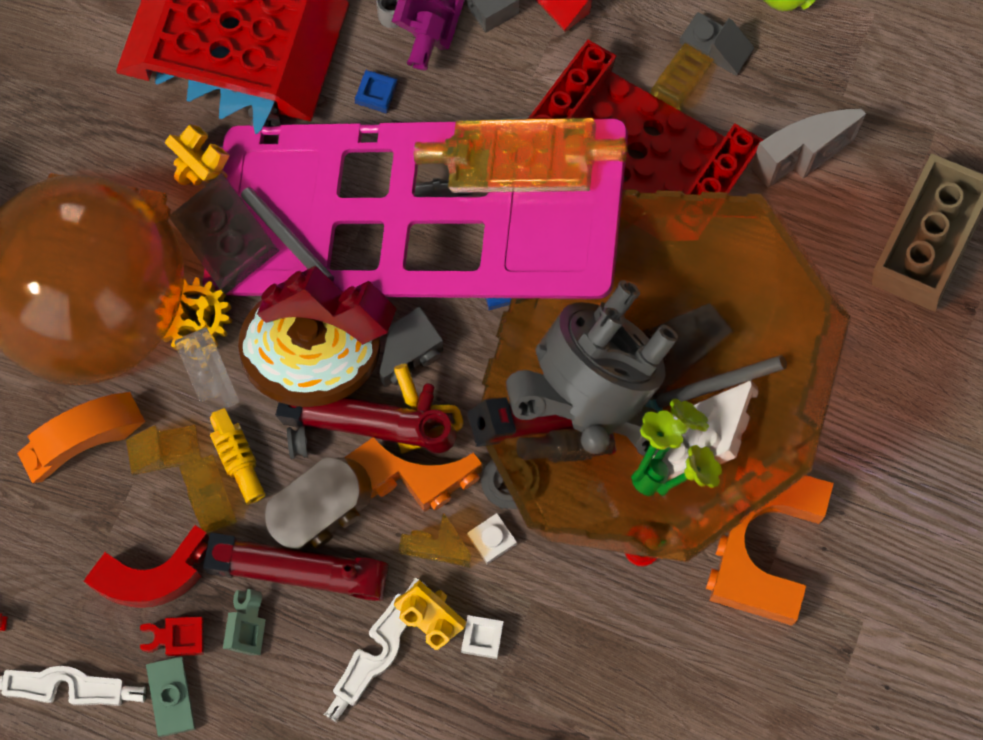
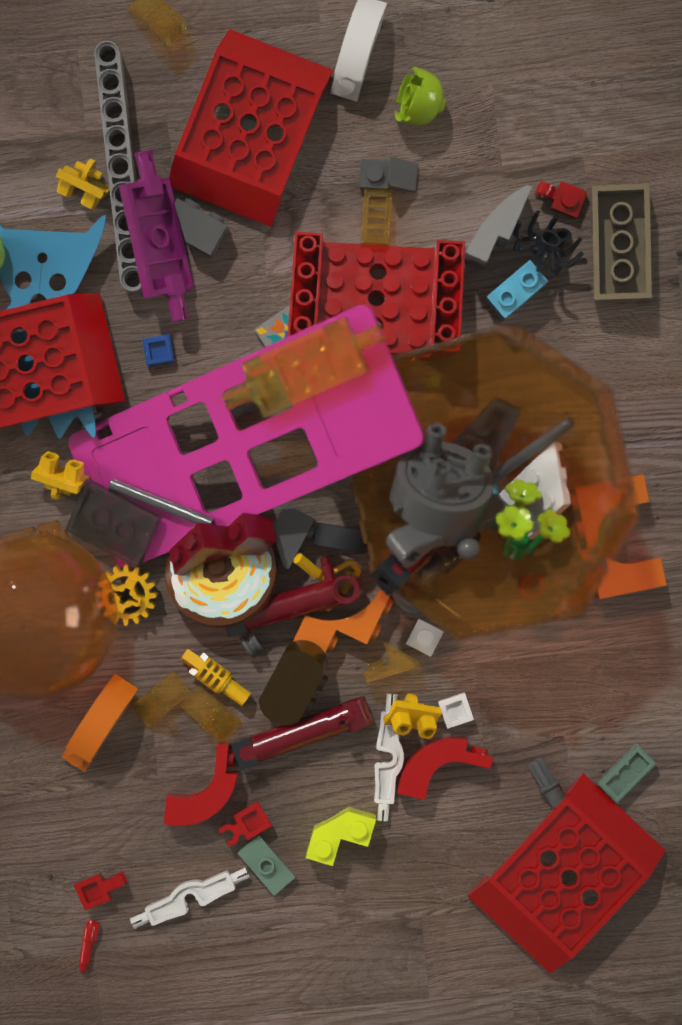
camera: 25 degrees left, 15 degrees up
(206, 367) = (160, 629): clear bracket -> none
(244, 628) = (291, 792): sand green plate -> none
(257, 698) = (348, 825): none -> neon yellow brick
(429, 672) = (434, 754): none -> red arch
(457, 375) = (339, 538): none -> black tyre
(806, 217) = (516, 290): none -> medium azure brick
(850, 190) = (547, 244): none -> black animal
(893, 161) = (565, 199): none -> red plate

